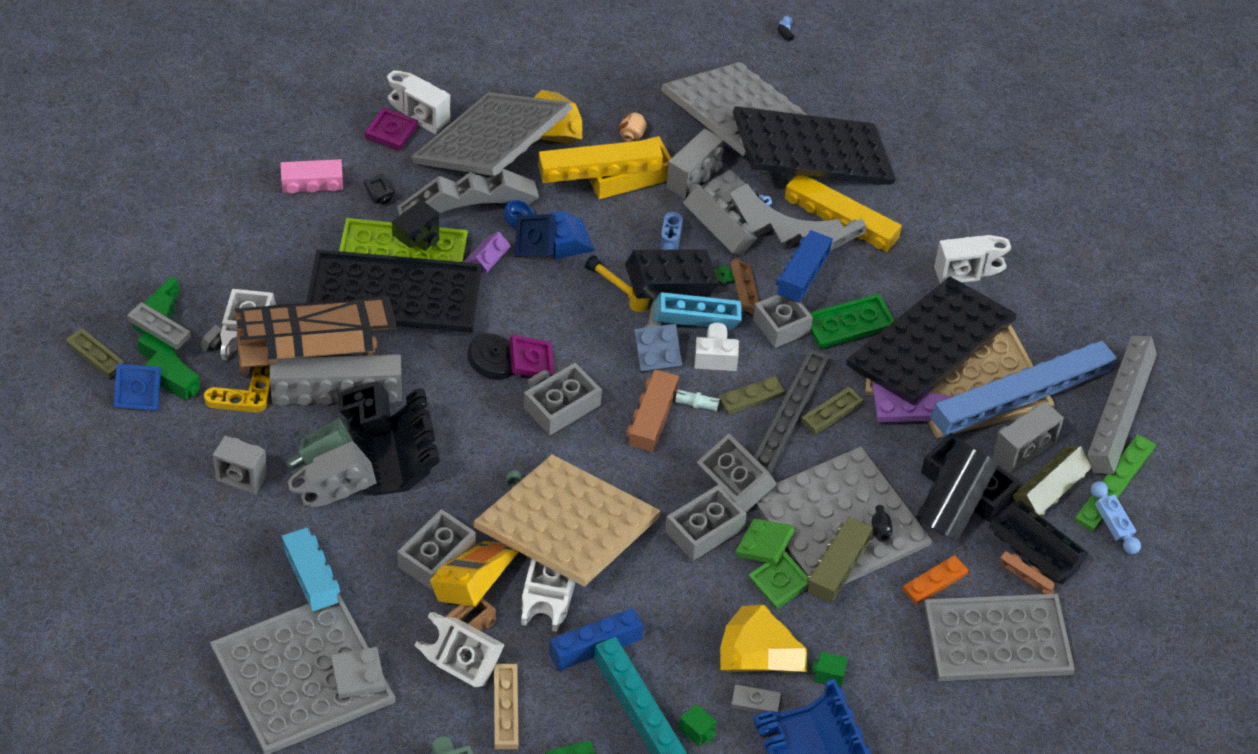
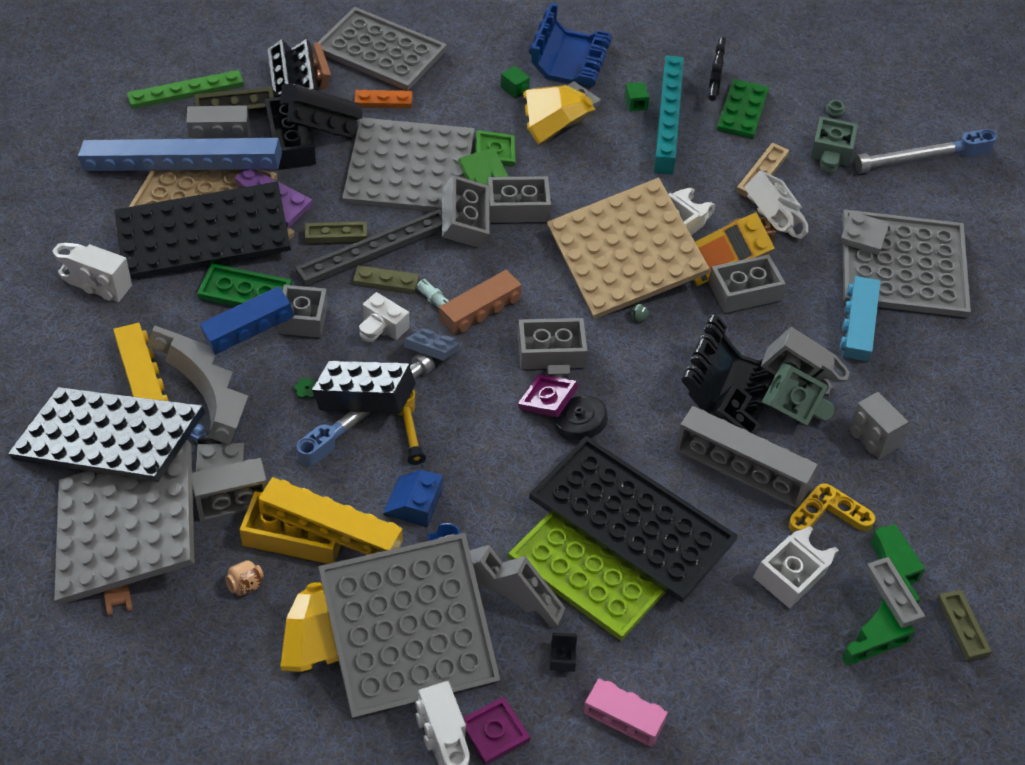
camera: 145 degrees left, 0 degrees up
(137, 386) = (946, 559): blue plate -> none
(211, 339) = (839, 575): light grey plate -> none
(310, 330) = (751, 480): medium nougat panel -> none
(417, 226) = (570, 548): black brick -> none
(489, 251) = (510, 513): medium lavender brick -> none
(535, 235) = (454, 496): dark blue plate -> none
(580, 643) = (672, 172): blue brick -> none
(696, 310) = (371, 345): medium azure brick -> none
(720, 220) = (263, 424): light grey brick -> none
(745, 285) = (301, 361): medium nougat plate -> none
(839, 560) = (446, 123): olive brick -> none
(881, 524) = (391, 130): black plant -> none
(1115, 517) = (219, 62): light blue plate -> none
(1122, 405) = (118, 117): light grey brick -> none

